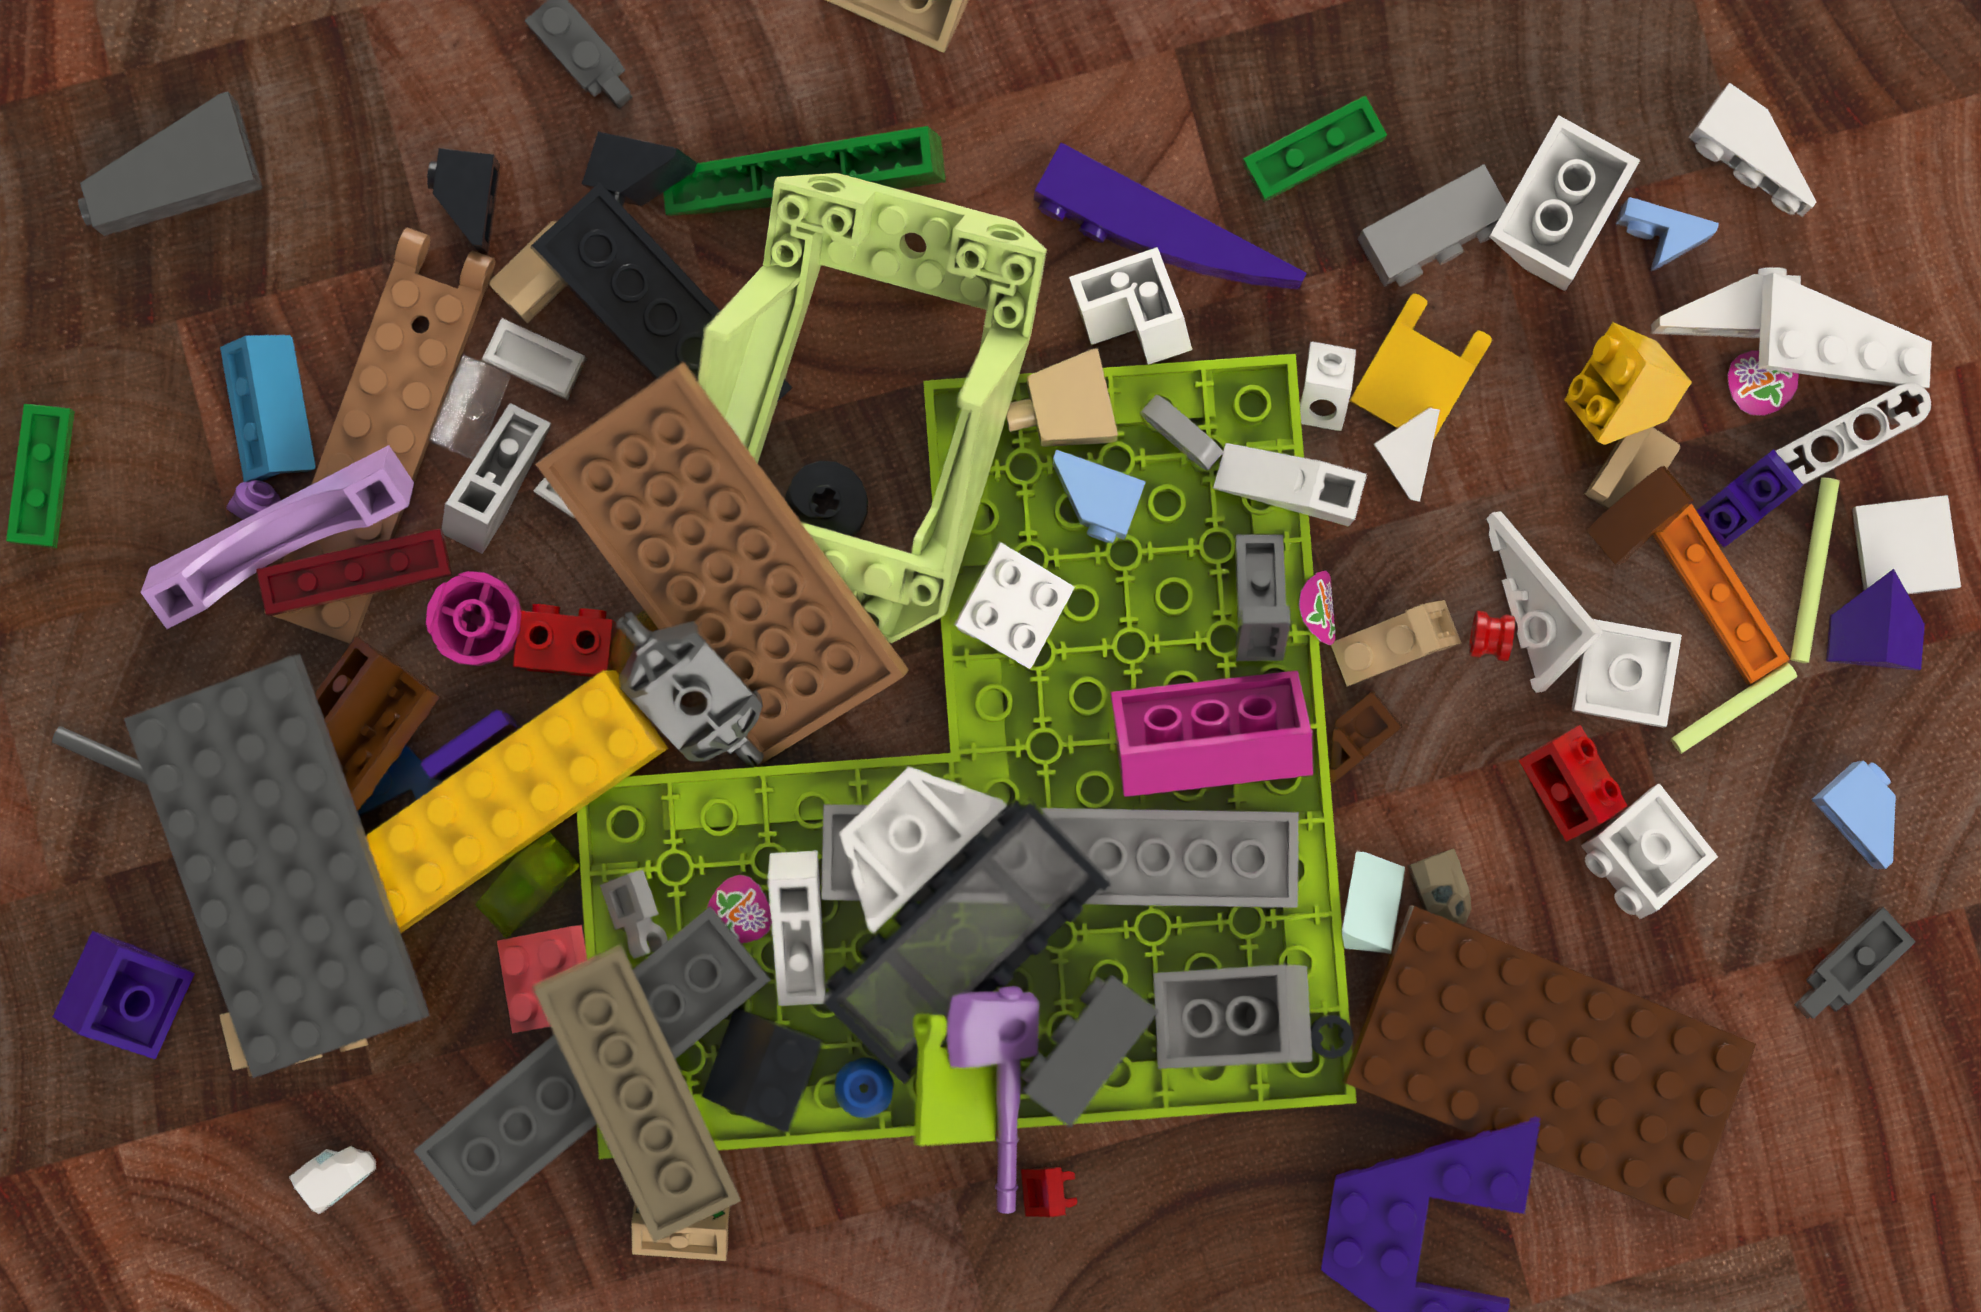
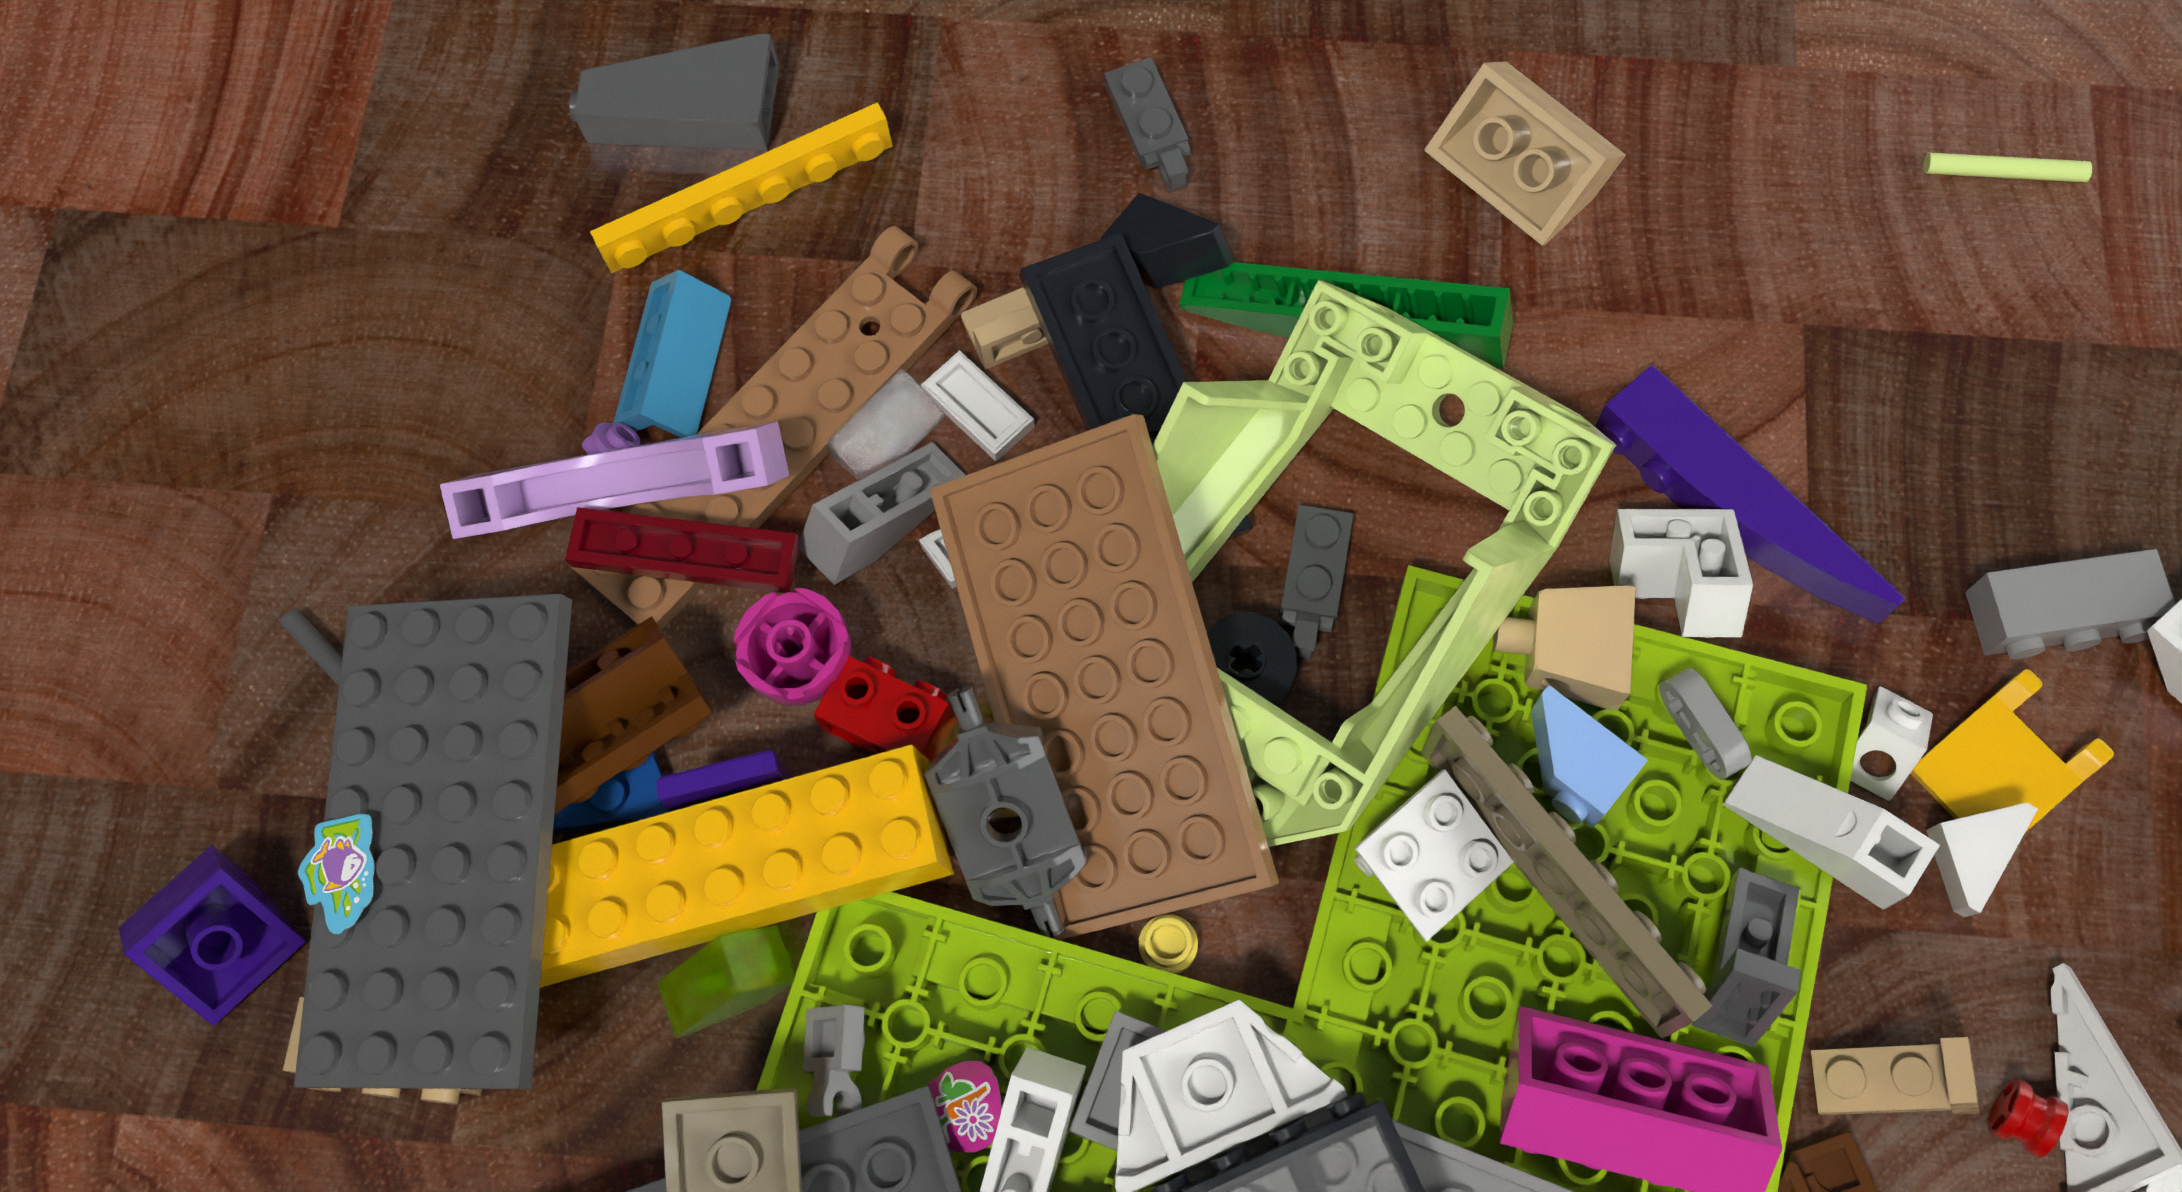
camera: 25 degrees right, 15 degrees down
(40, 475) = (404, 345): green plate -> none
(217, 916) = (340, 870): none -> sticker
(252, 250) = (743, 188): none -> yellow plate
(467, 190) = (976, 212): black slope -> none
(531, 960) = (692, 1069): coral plate -> none
(844, 737) = (1168, 943): none -> light yellow plate
(854, 406) = (1315, 574): none -> dark grey hinge
(1091, 577) = (1577, 891): none -> dark tan plate
(1314, 148) = (1944, 473): green plate -> none
(1317, 607) = (1813, 996): sticker -> none

